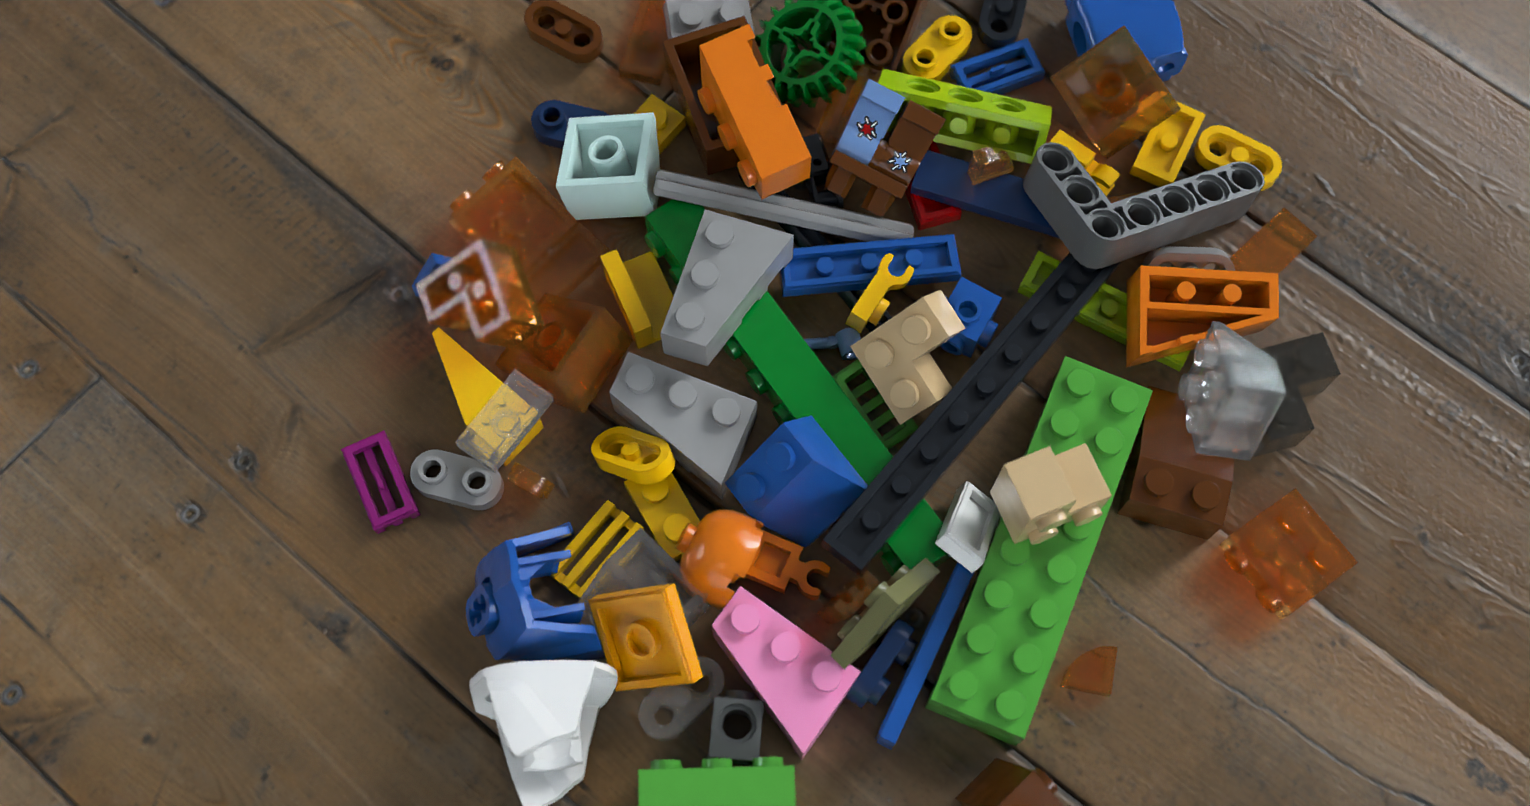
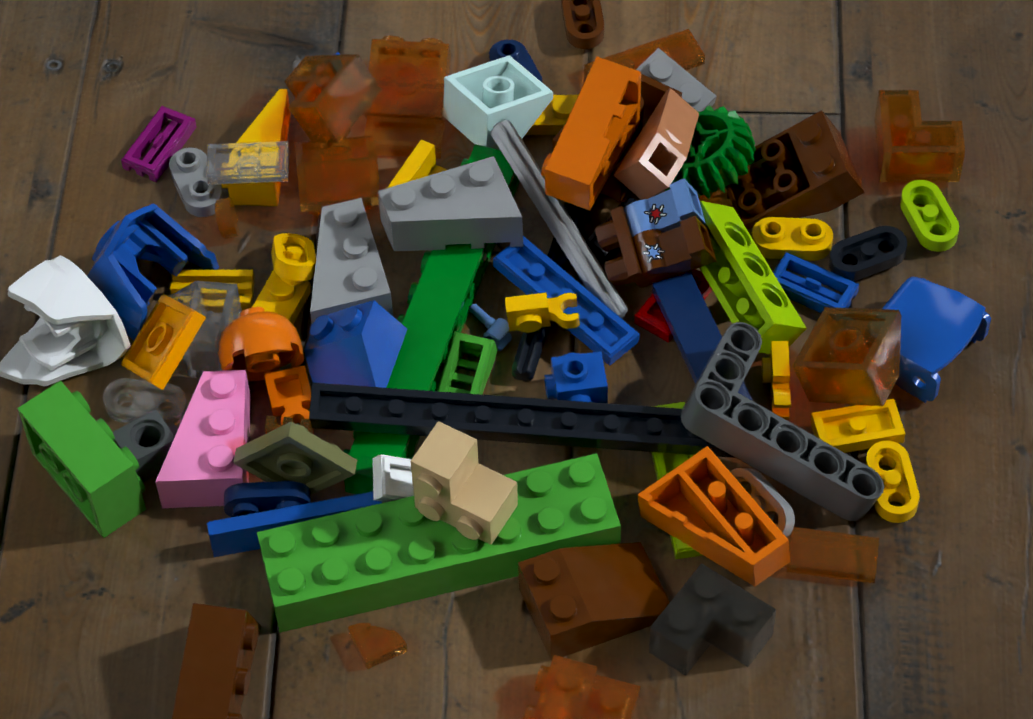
camera: 55 degrees right, 15 degrees down
(803, 75) = (659, 147): none -> nougat slope
(900, 356) = (510, 351): tan brick -> none
(987, 165) = (707, 312): clear orange tile -> none
(1230, 394) = (653, 569): clear slope -> none

